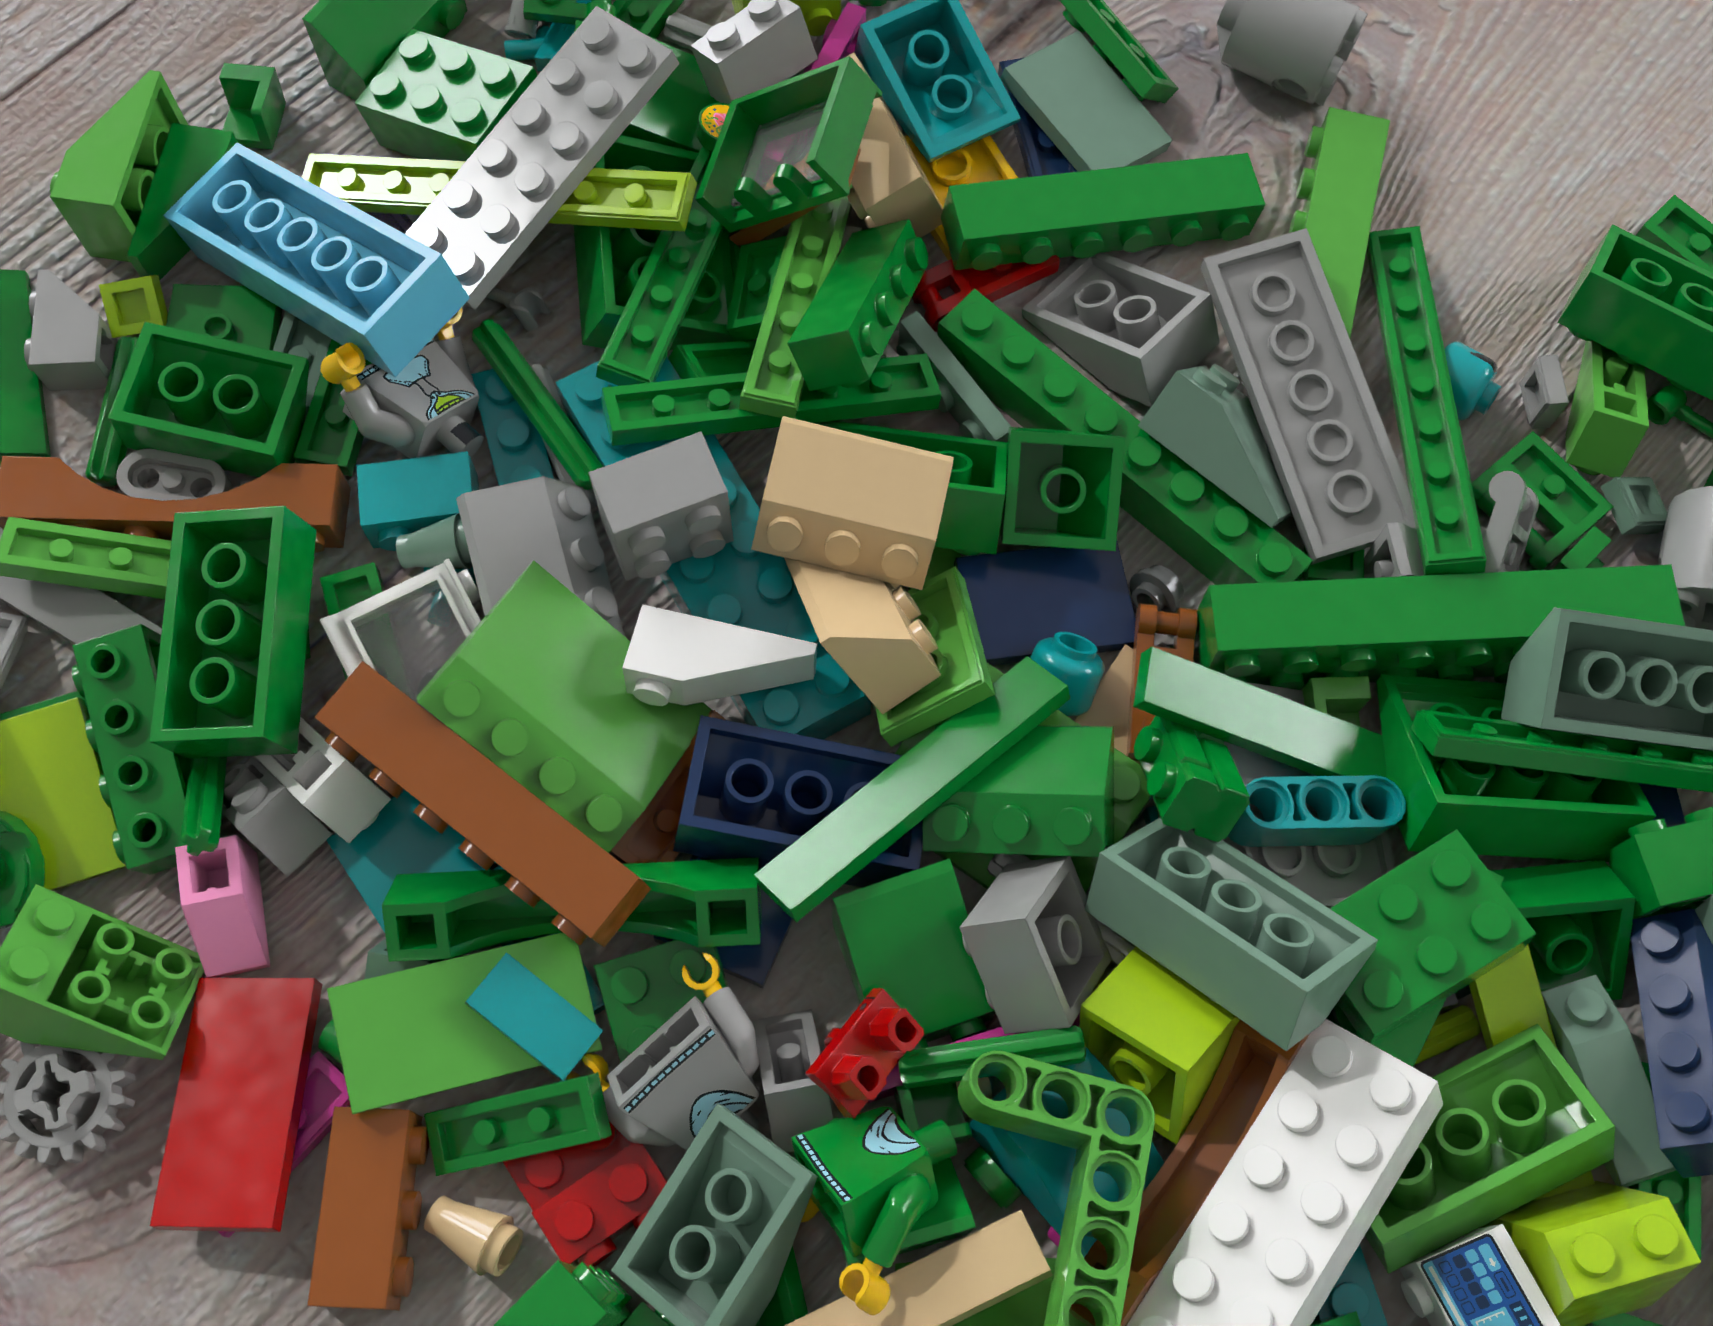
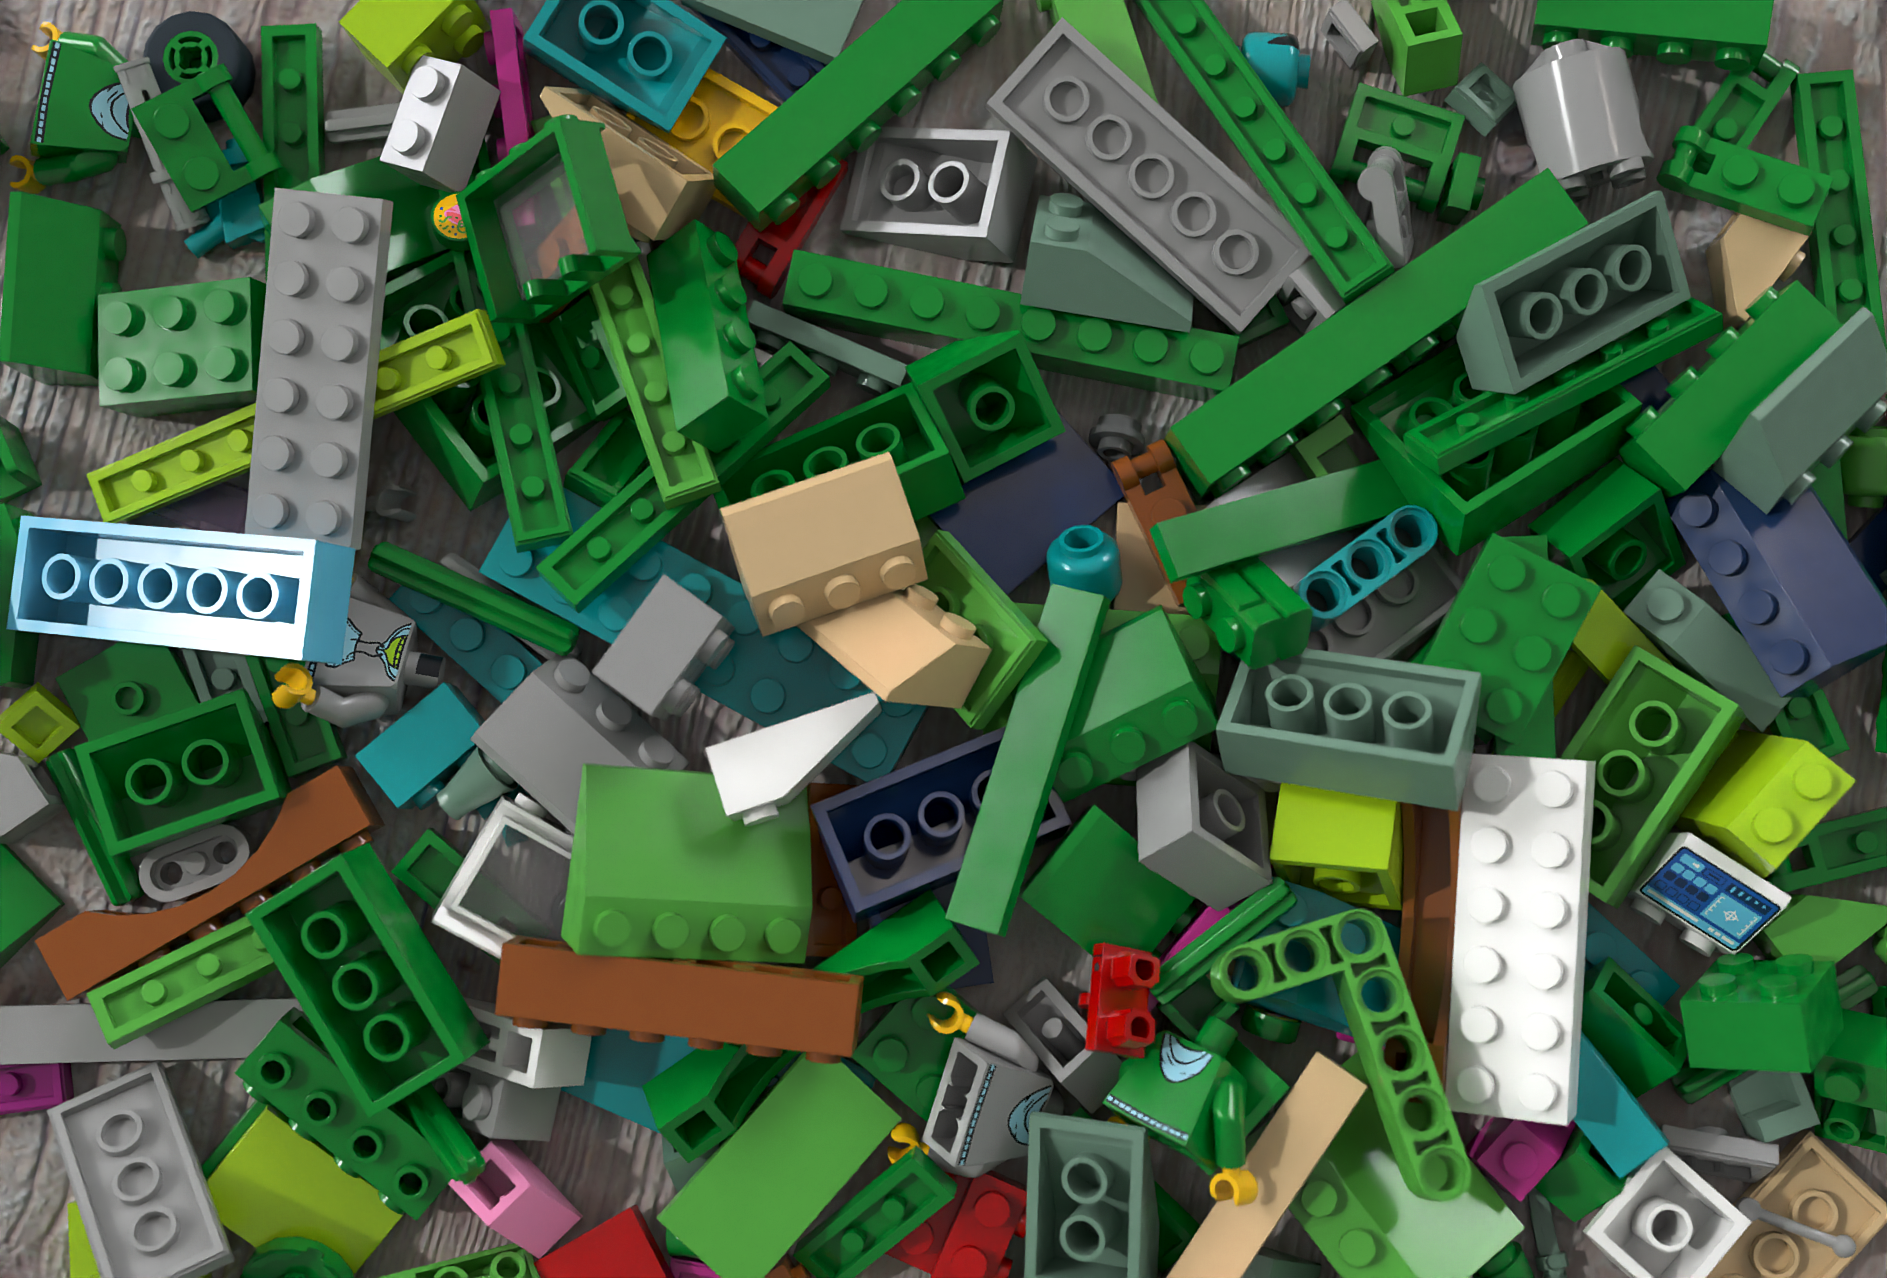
camera: 25 degrees left, 15 degrees up
(534, 1017) = (834, 1132): teal tile -> none

